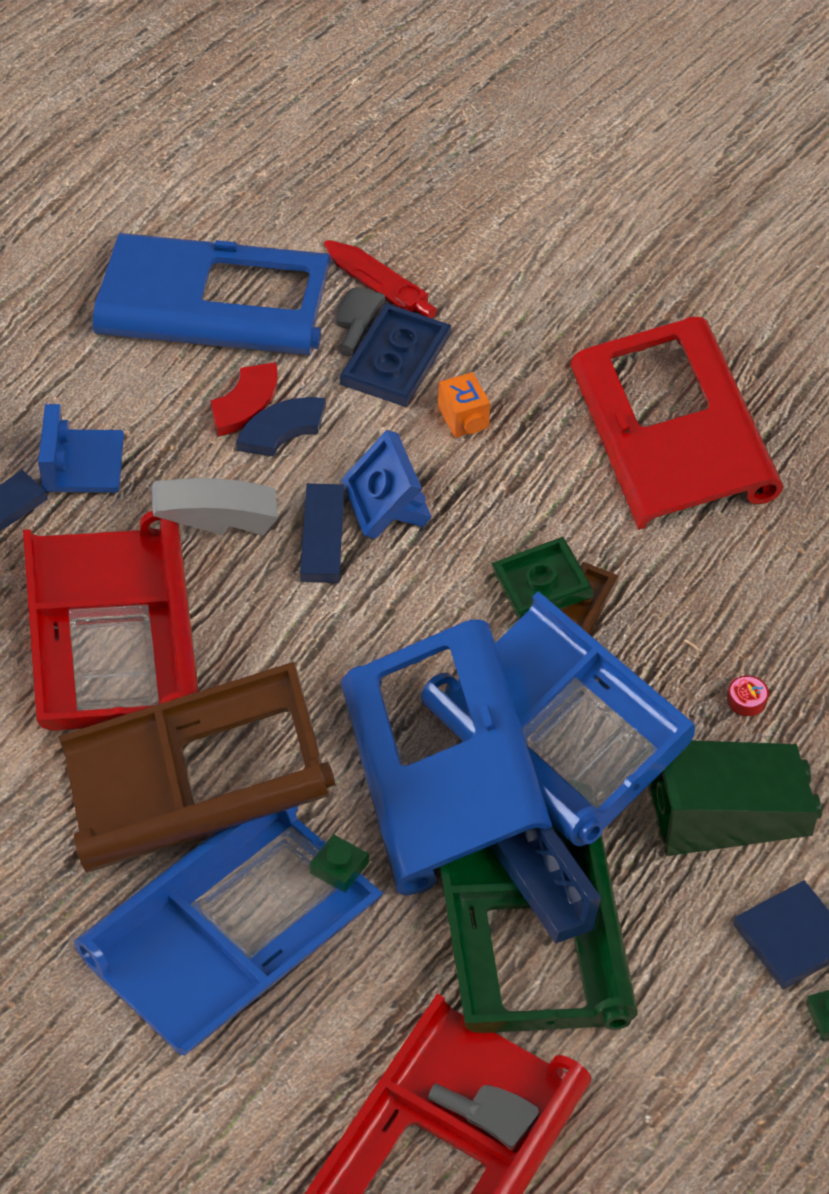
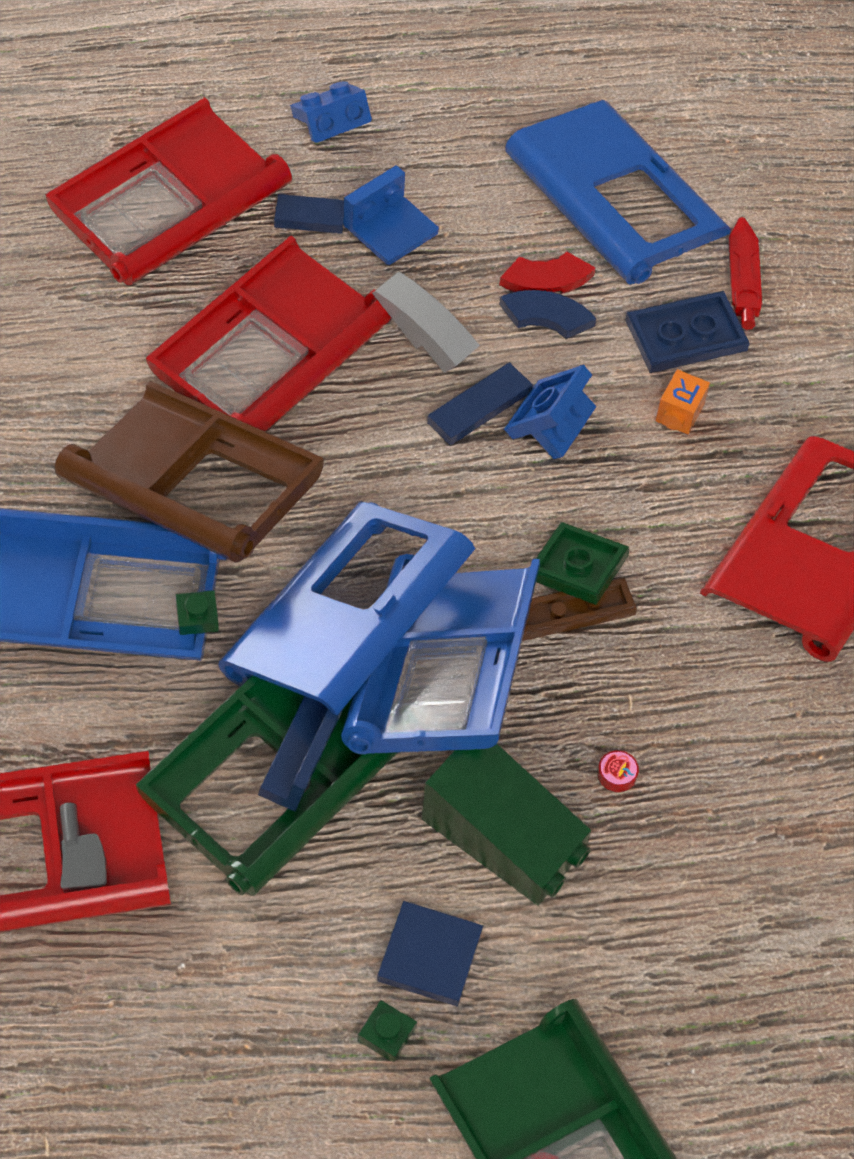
camera: 45 degrees right, 5 degrees up
(356, 315) = (695, 283): dark grey piece -> none

